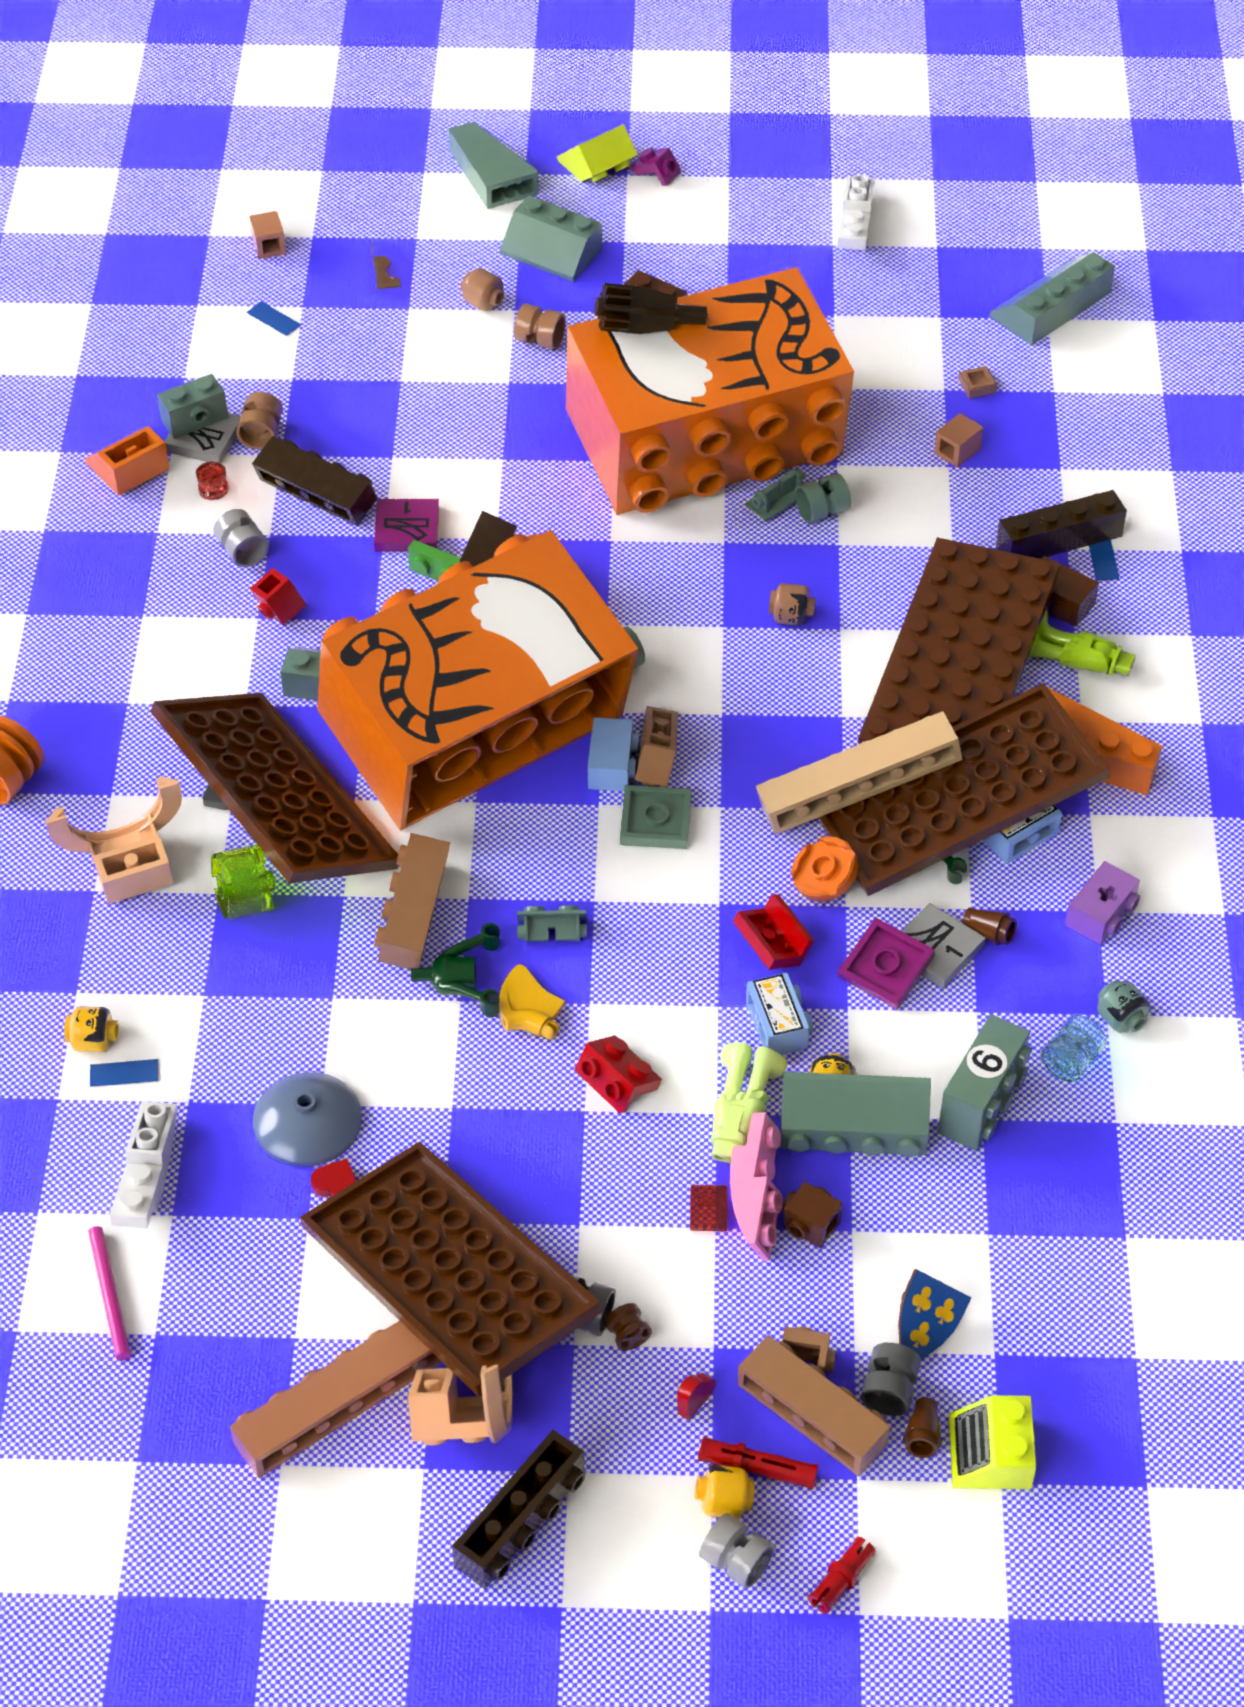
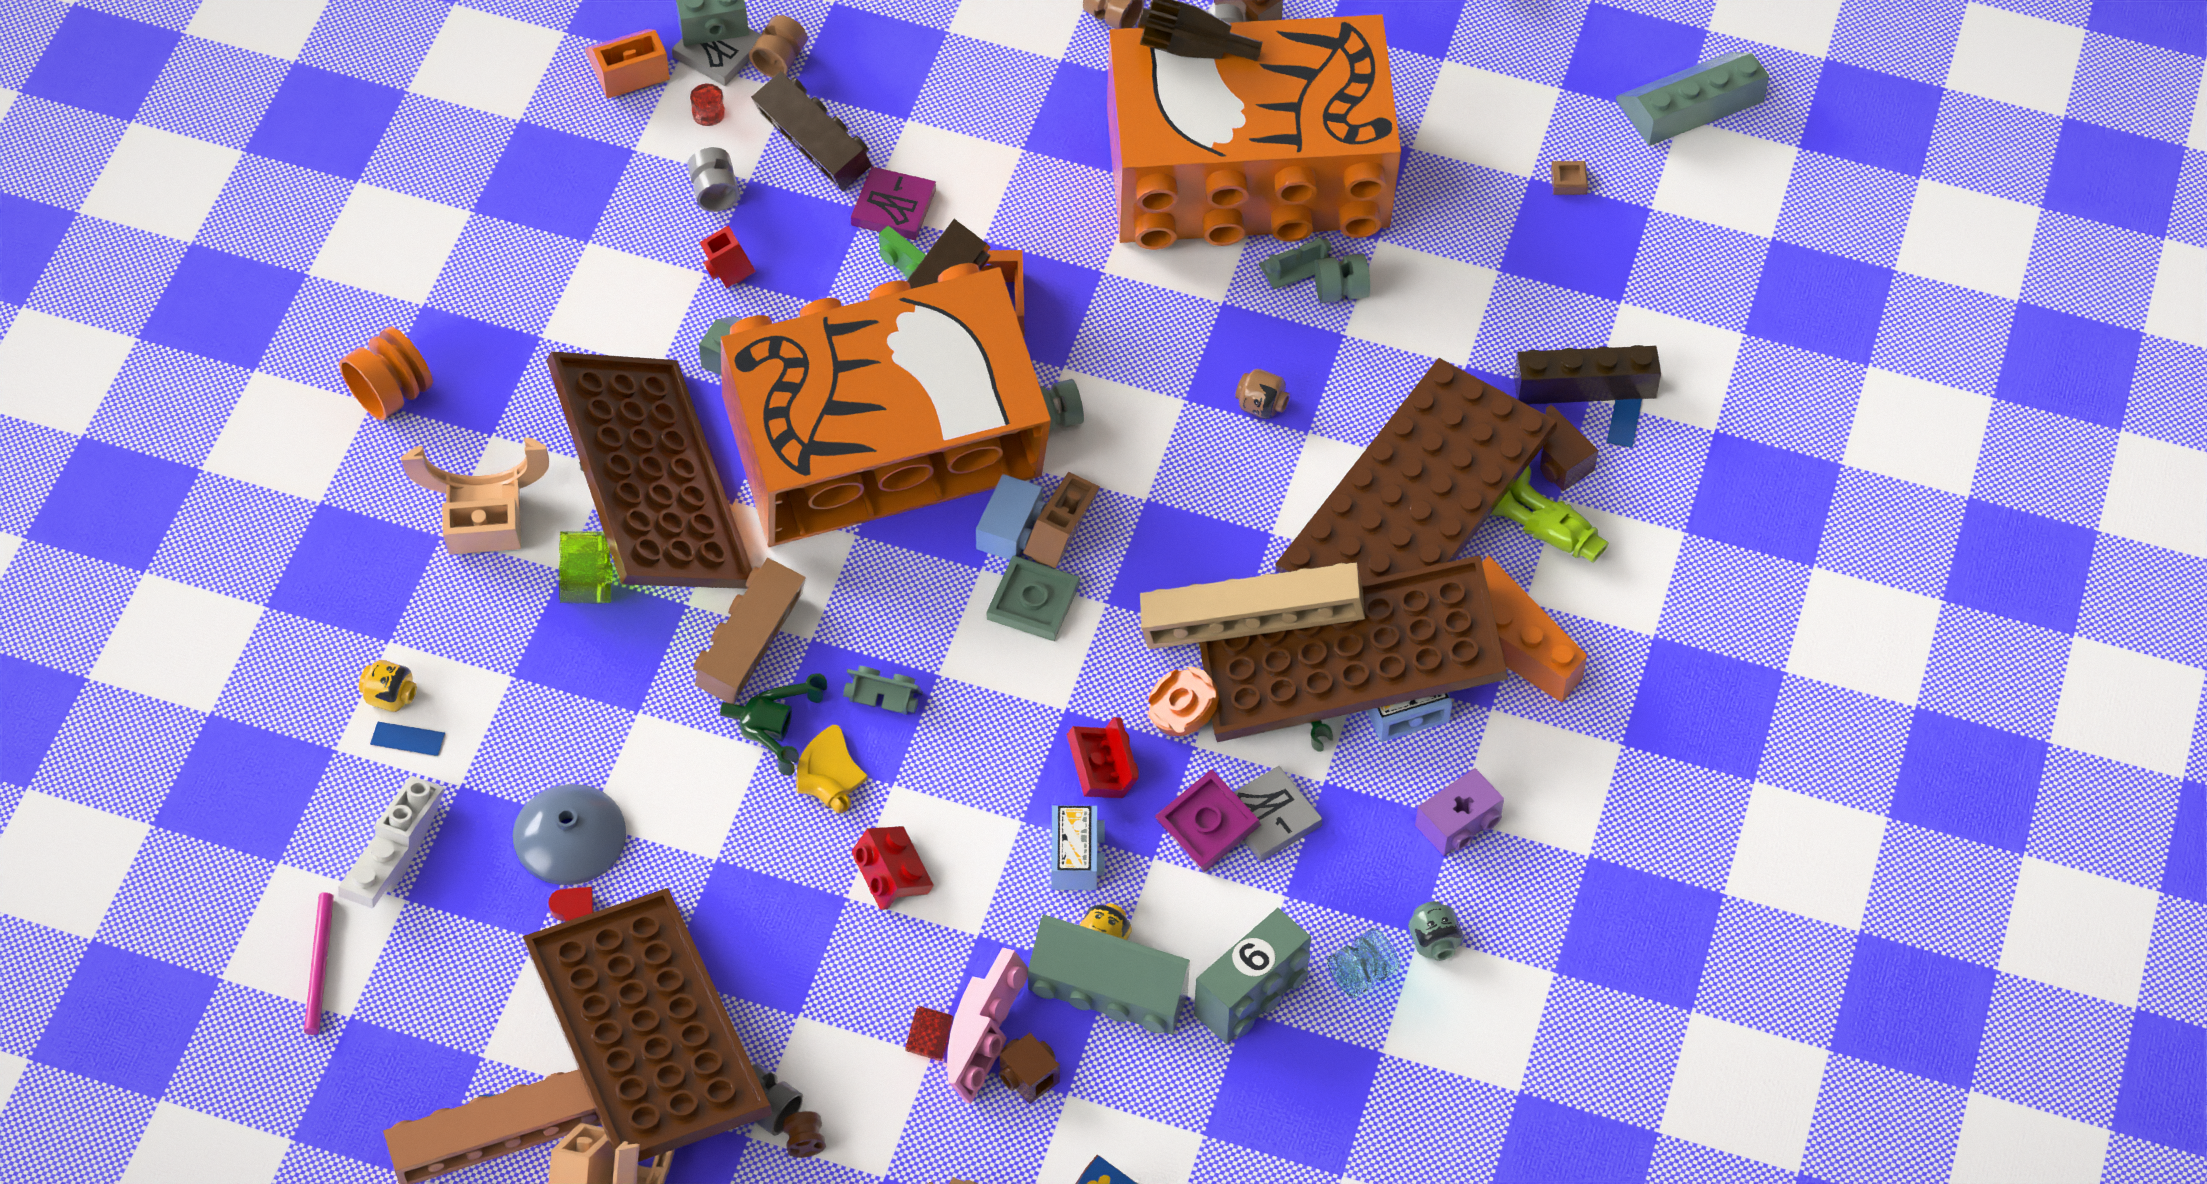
camera: 15 degrees right, 5 degrees up
(735, 1109) = (995, 933): yellowish green piece -> none
(958, 440) = (1518, 243): nougat brick -> none
(993, 925) = (1336, 808): reddish brown cone -> none

